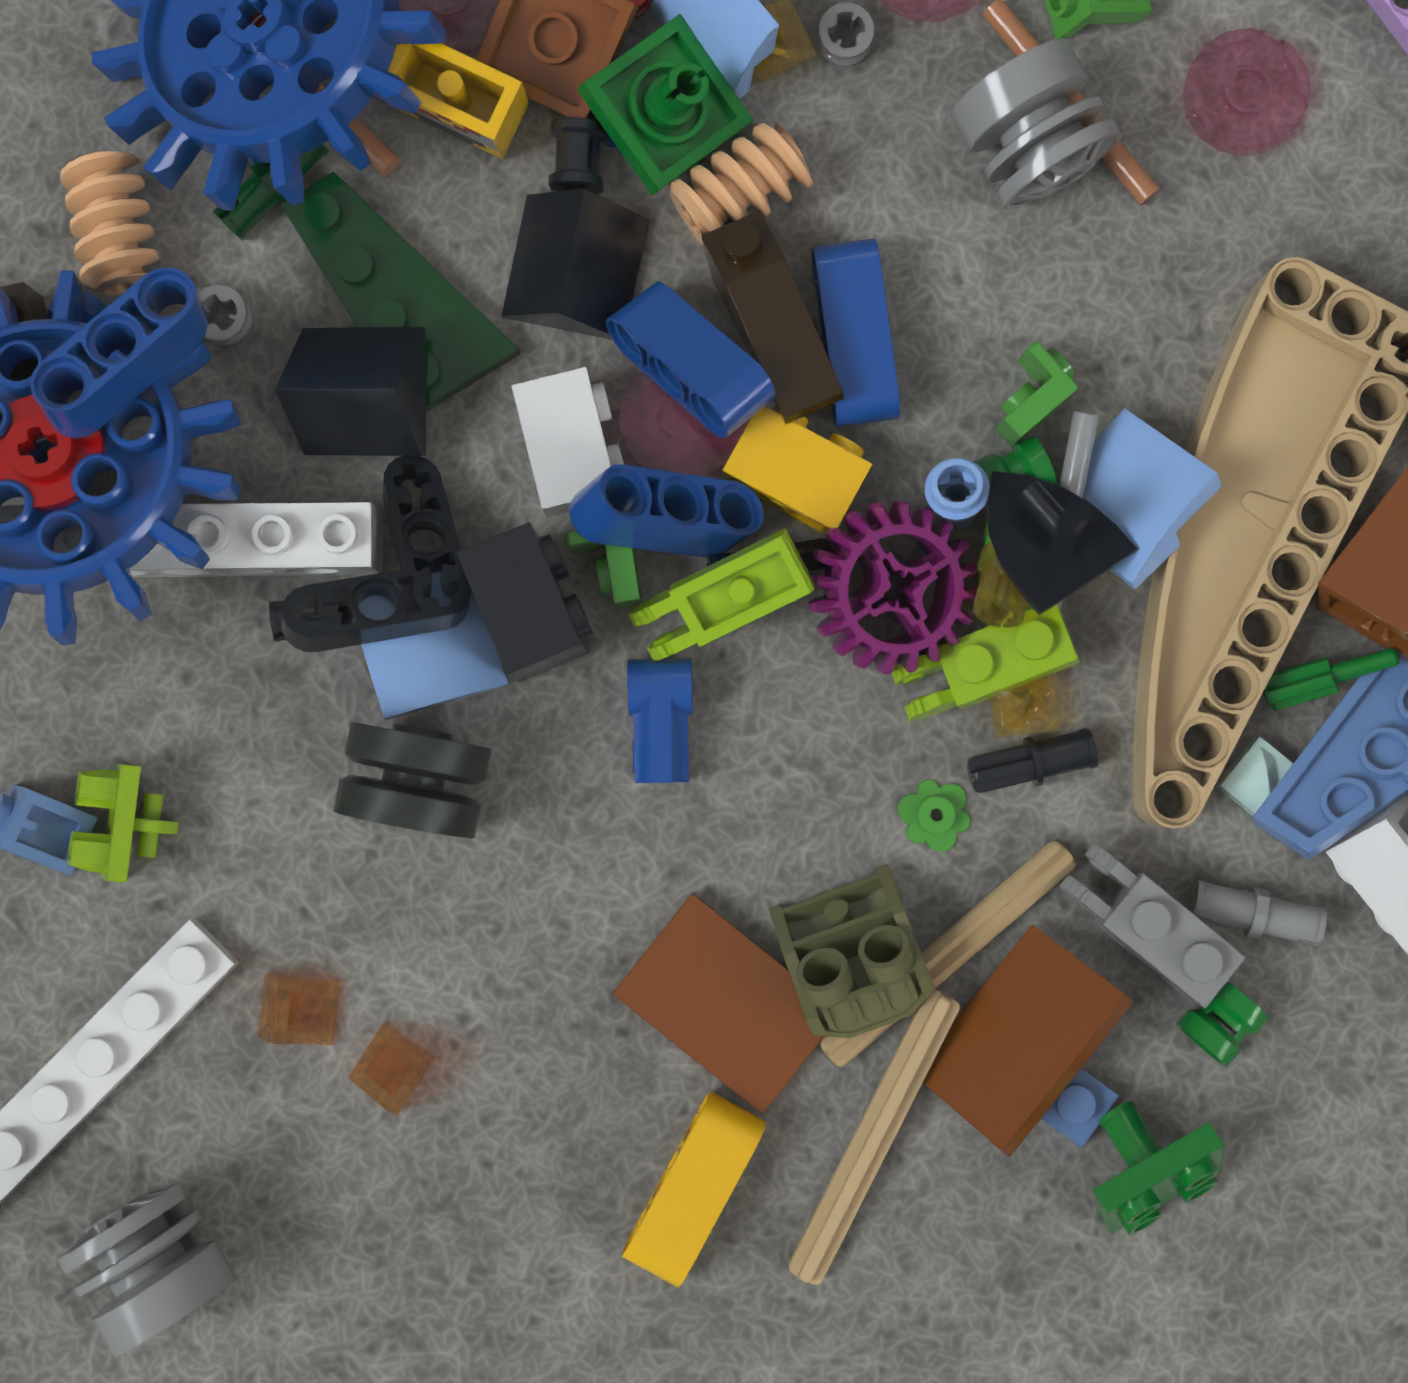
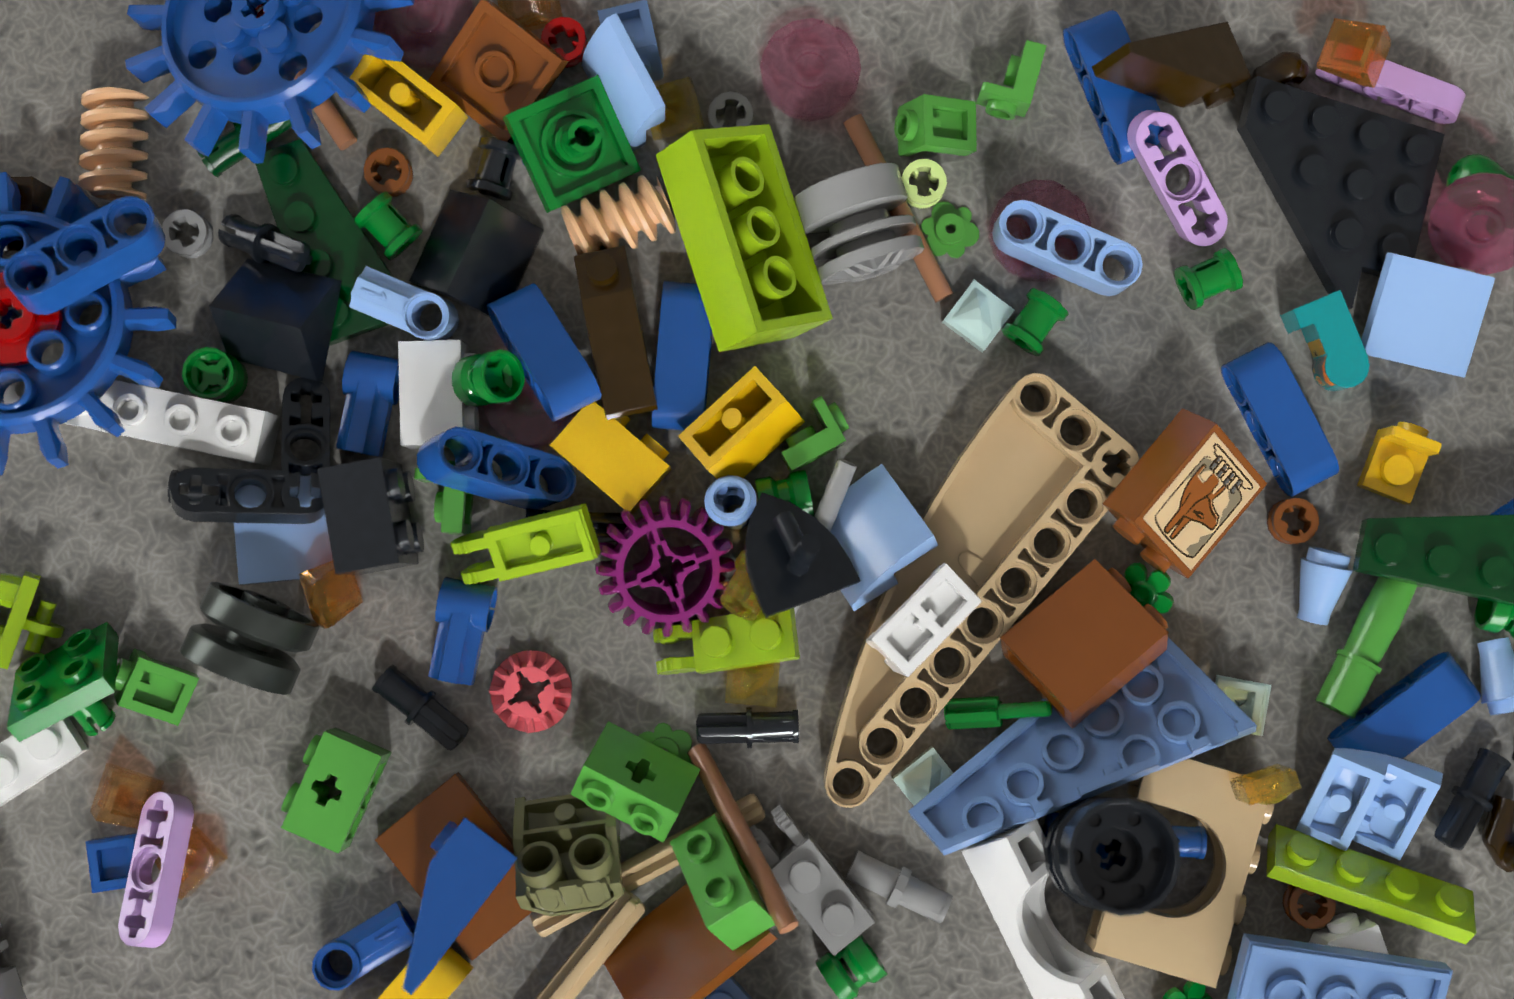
camera: 10 degrees right, 0 degrees up
(201, 885) = (66, 684): none -> green plate
(284, 469) = (206, 368): none -> green wheel
(303, 868) = (153, 687): none -> bright green bracket
(305, 1090) = (110, 861): none -> blue tile
(322, 304) = (265, 243): none -> black axle
(343, 1133) = (136, 903): none -> lavender beam
(437, 173) = (384, 157): none -> dark orange bush
(463, 252) = (388, 225): none -> green bush
(487, 460) = (370, 392): none -> blue piece
(493, 707) = (329, 594): none -> clear orange slope
(502, 340) = (401, 304): none -> light blue piece
(558, 981) = (336, 819): none -> bright green brick
(631, 405) = (488, 378): none -> green wheel
(632, 824) = (421, 708): none -> black axle
(637, 1120) = (367, 945): none -> blue piece
(736, 1024) = (456, 886): none -> blue slope
(757, 806) = (553, 699): none -> coral gear
(900, 167) = (743, 235): none -> lime brick
(916, 853) = (635, 781): none -> bright green brick
(948, 398) = (741, 427): none -> yellow brick
(1053, 949) = (721, 883): none -> bright green brick
(1064, 892) = (743, 839): none -> nougat bar
(1107, 51) = (936, 175): none -> yellowish green bush
(1156, 114) = (940, 240): none -> bright green plant
(1196, 209) = (978, 316): none -> light aqua tile
(1227, 580) = (924, 620): none -> white hinge
(1268, 200) = (1035, 321): none -> green bush
(1317, 88) = (1091, 245): none -> light blue beam

